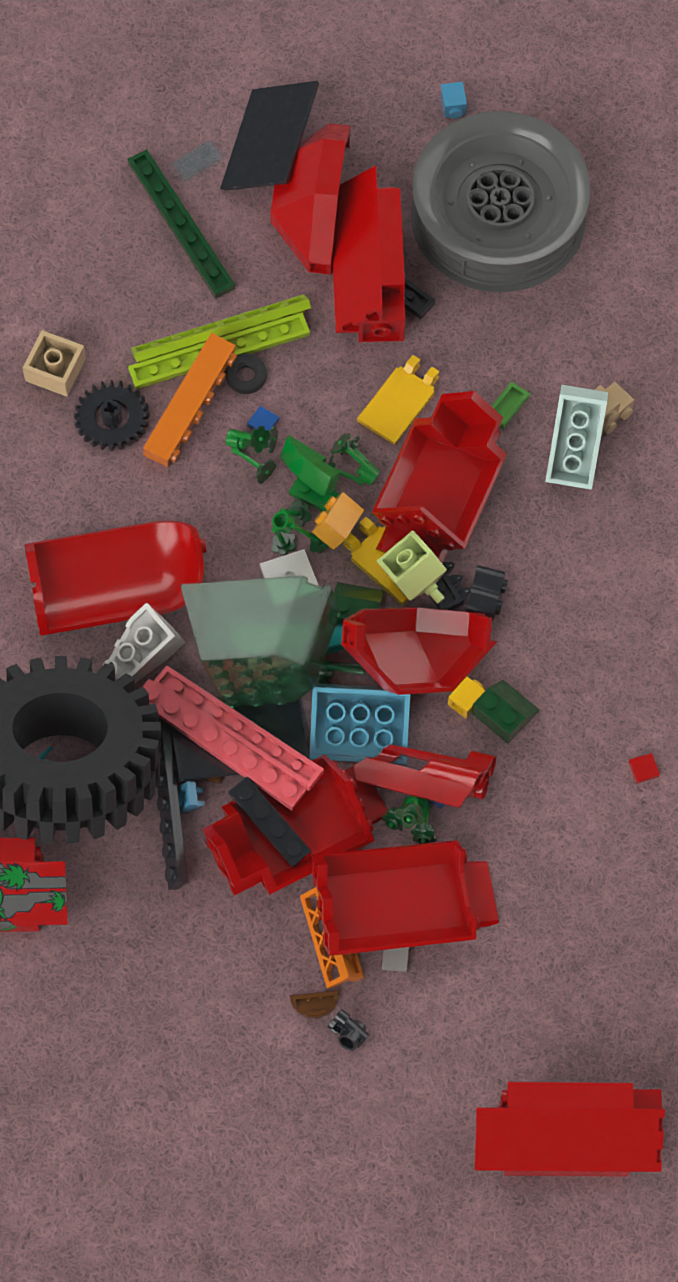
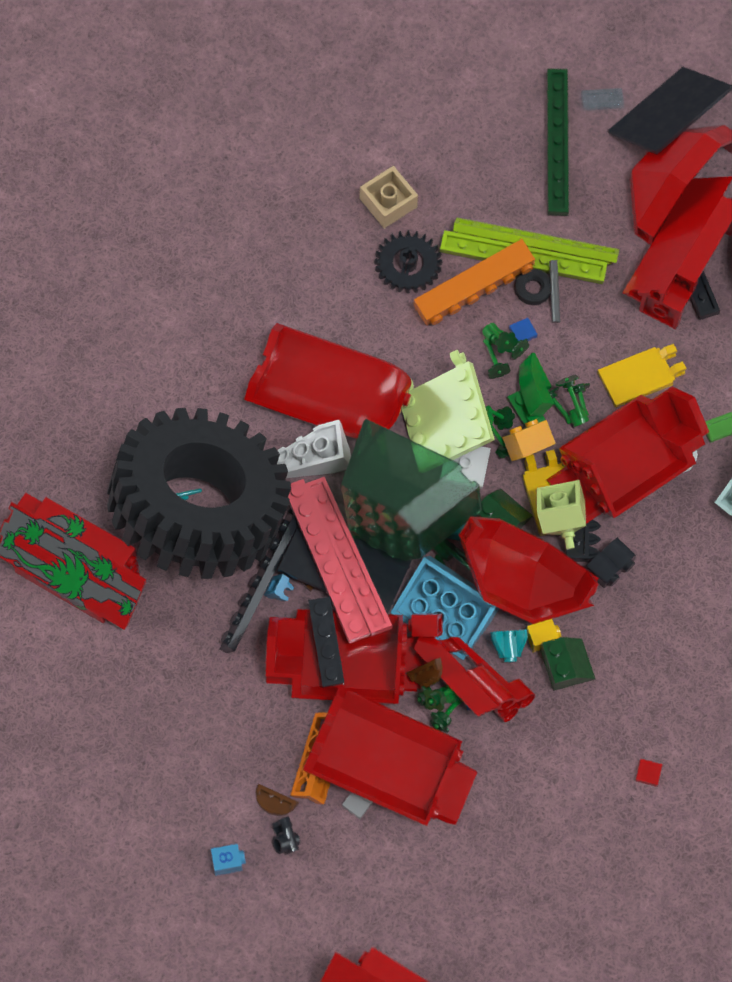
camera: 30 degrees right, 0 degrees up
(248, 534) = (449, 412): none -> yellowish green plate
(270, 367) = (554, 285): none -> dark grey piece
(307, 1085) = (227, 859): none -> dark azure brick
(353, 750) = (426, 625): none -> red brick
(385, 795) = (427, 674): none -> reddish brown tile
(441, 723) = (509, 643): none -> teal brick

